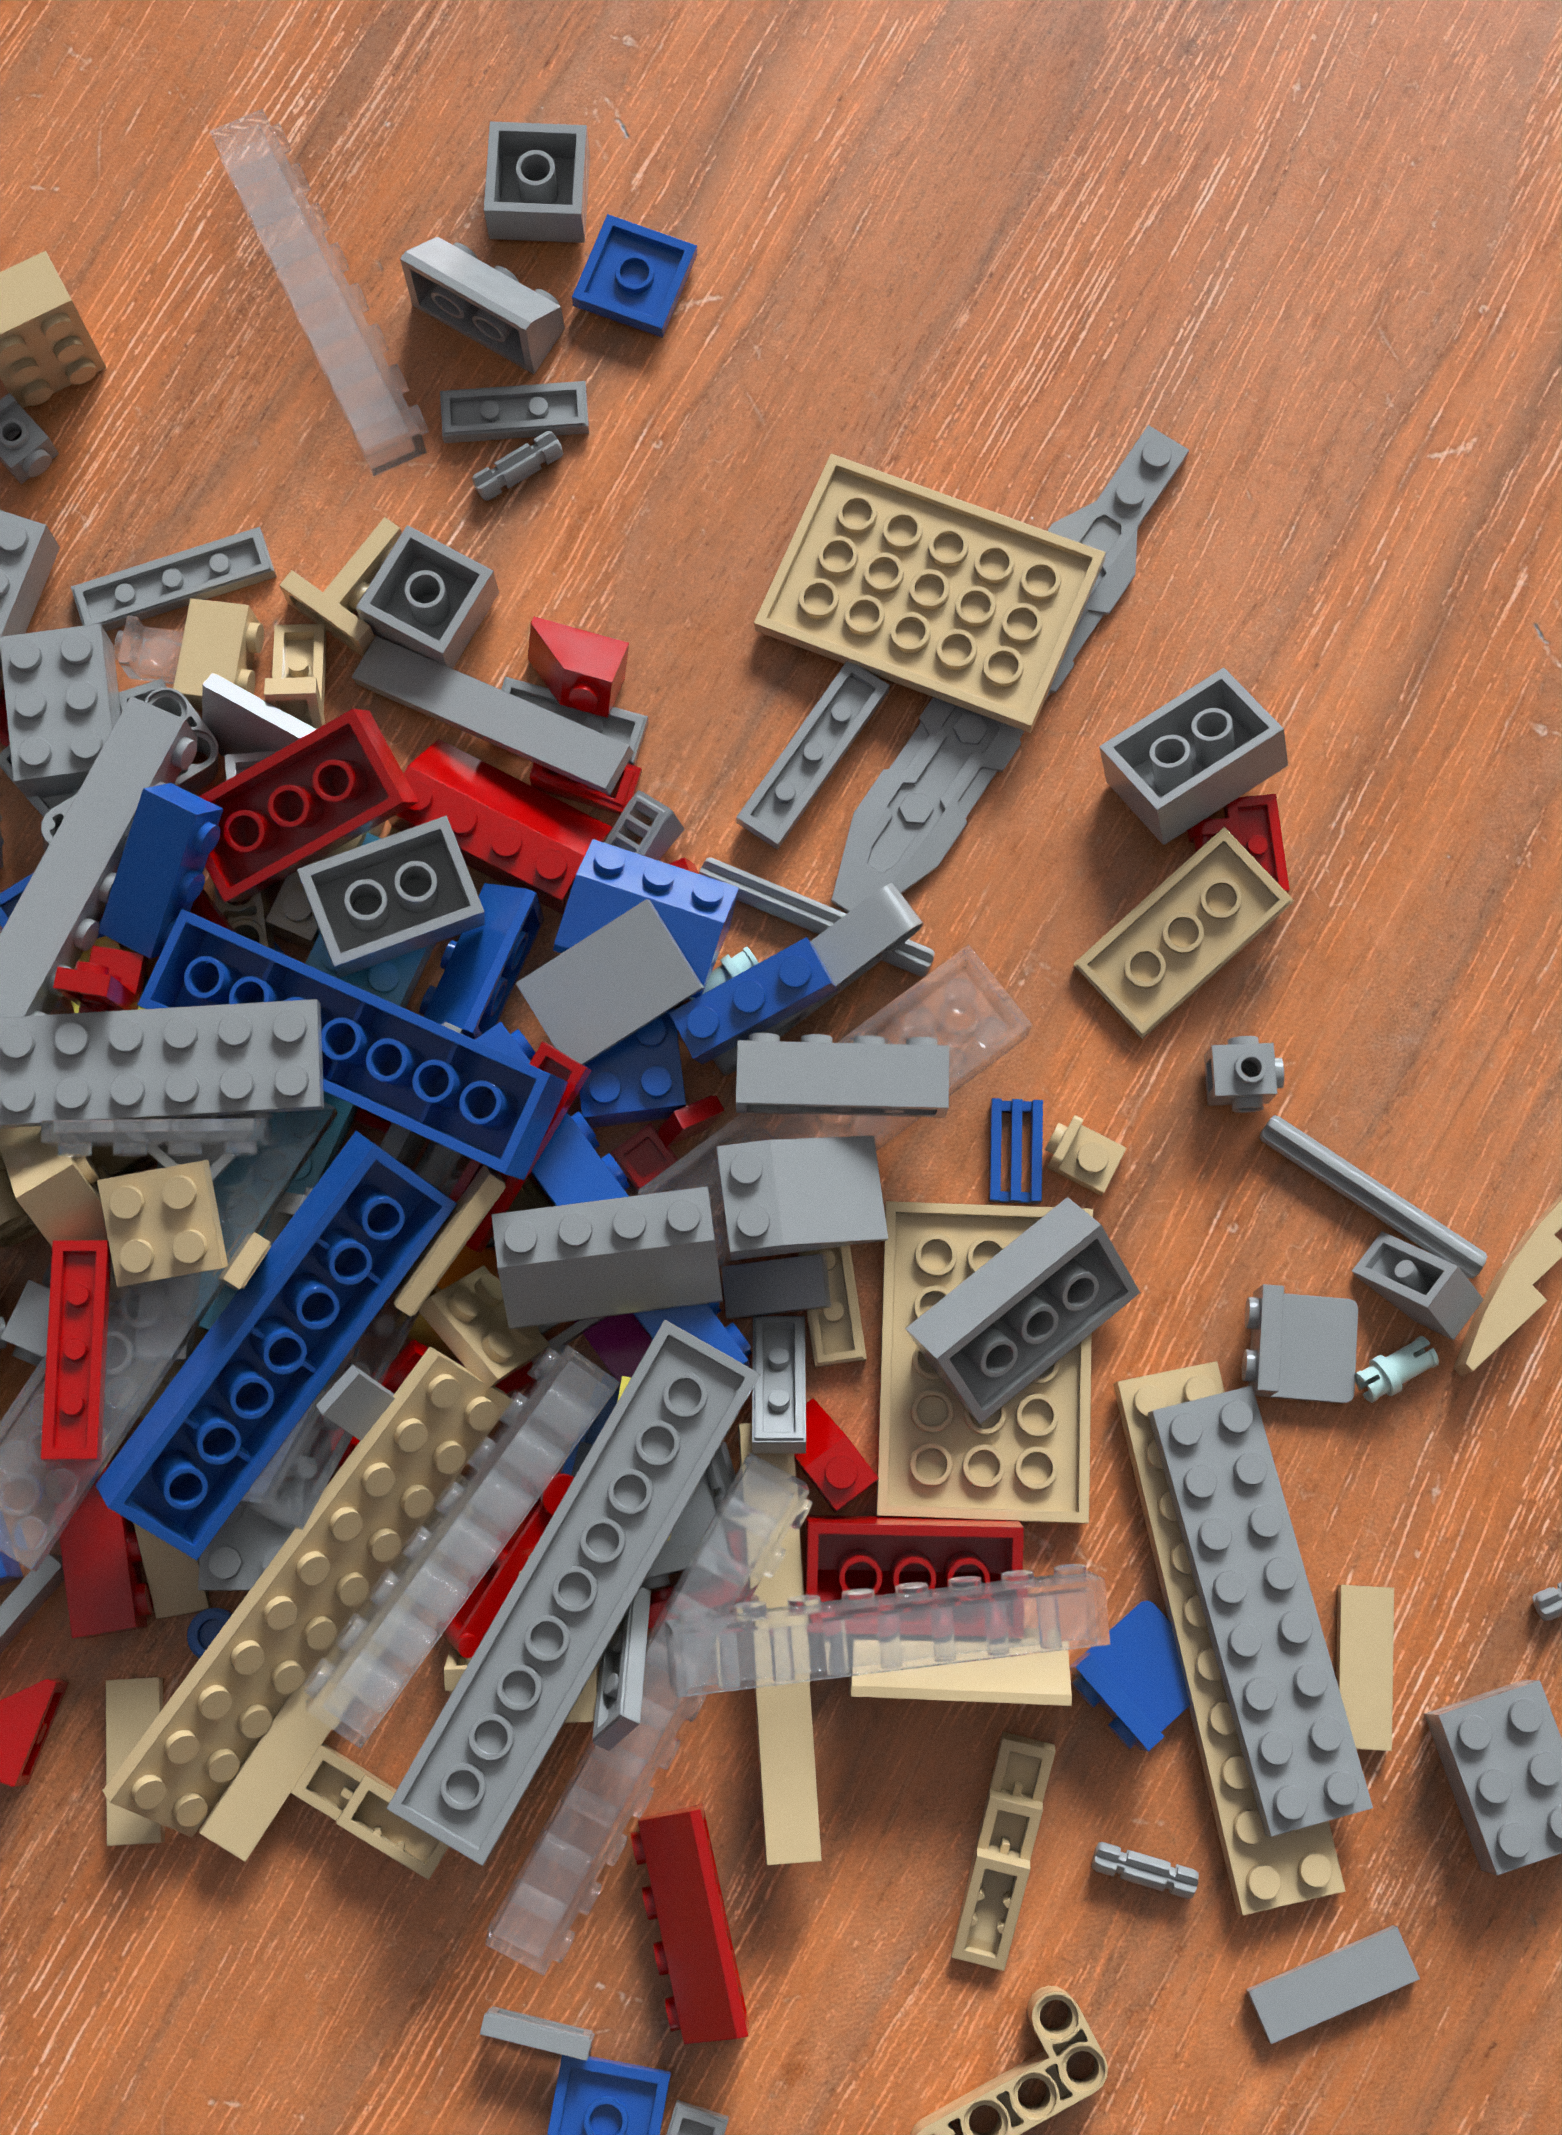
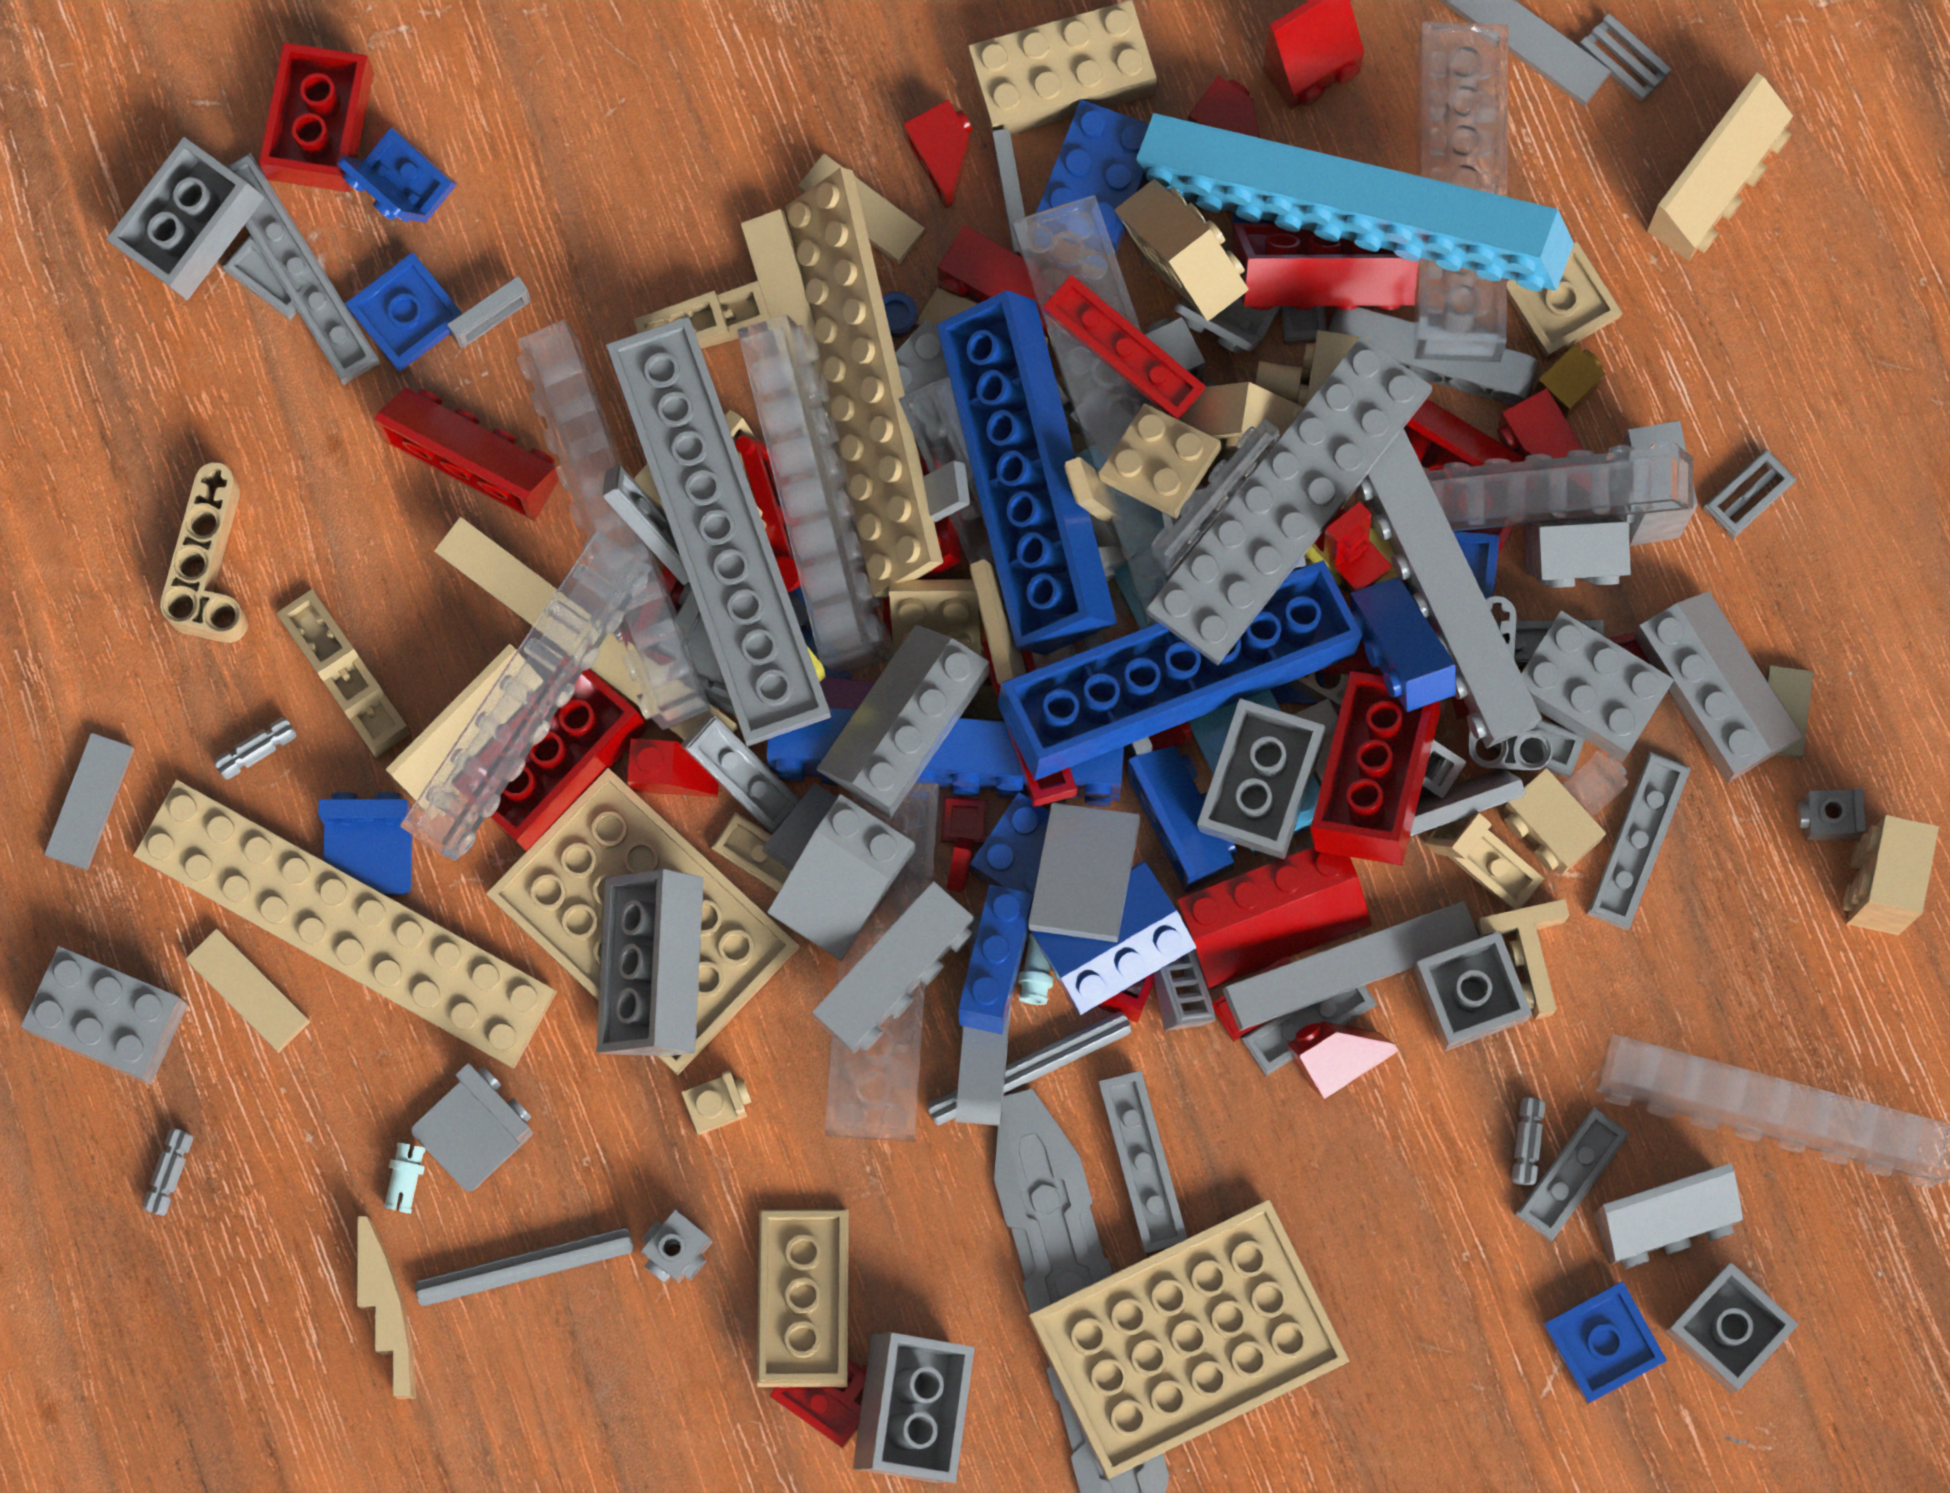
camera: 135 degrees right, 0 degrees up
(1016, 1108) = (731, 1036): blue tile -> none
(1259, 1611) = (341, 949): light grey plate -> none
(1419, 1284) = (442, 1239): light grey slope -> none

